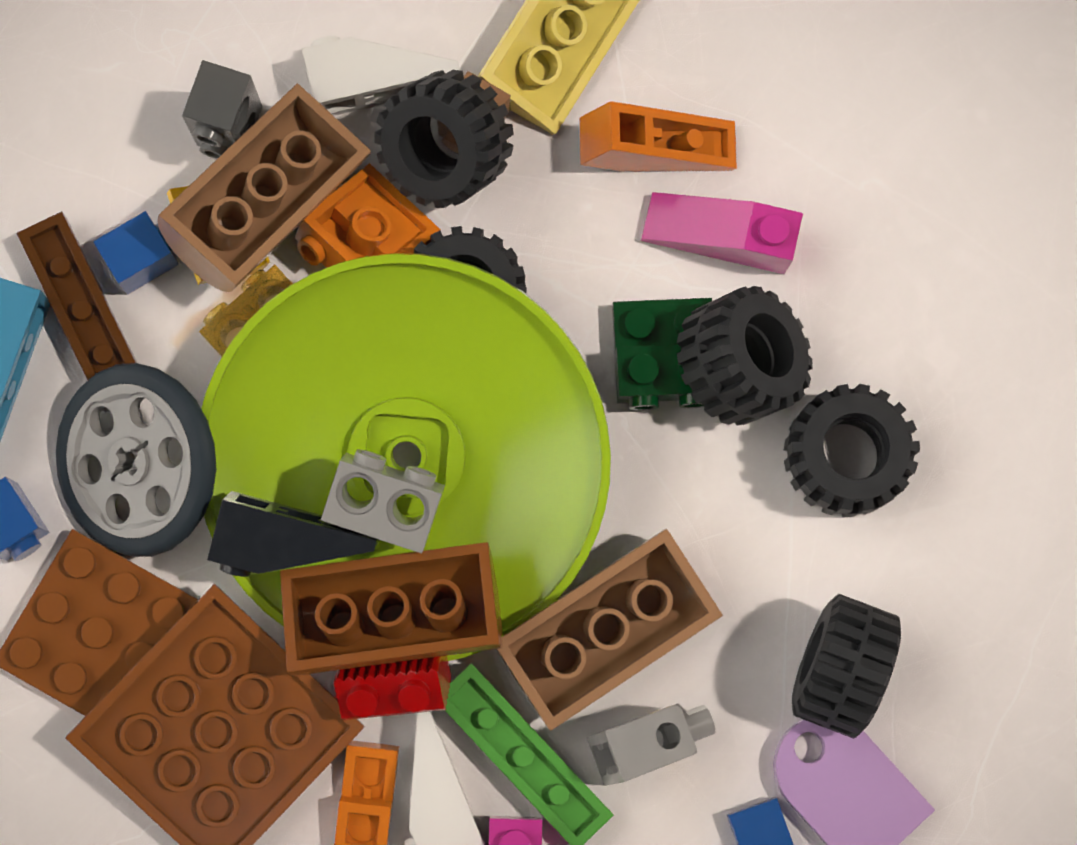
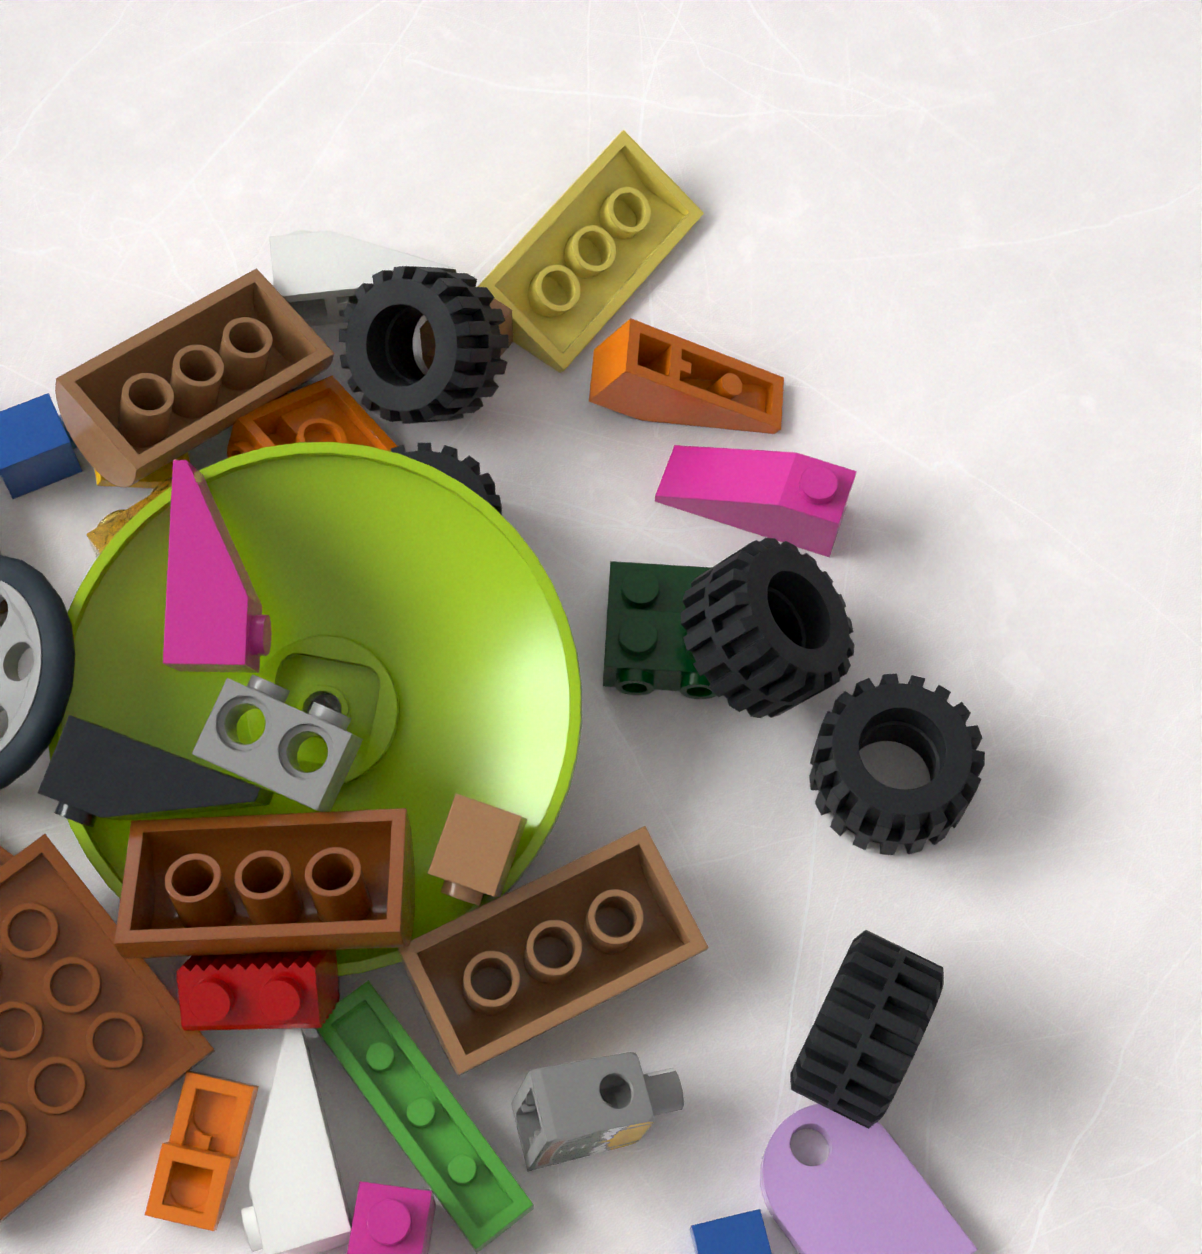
camera: 10 degrees right, 15 degrees down
(220, 108) = (157, 277): dark grey brick -> none
(315, 390) = (210, 601): none -> dark pink slope
(544, 564) = (476, 849): none -> medium nougat brick

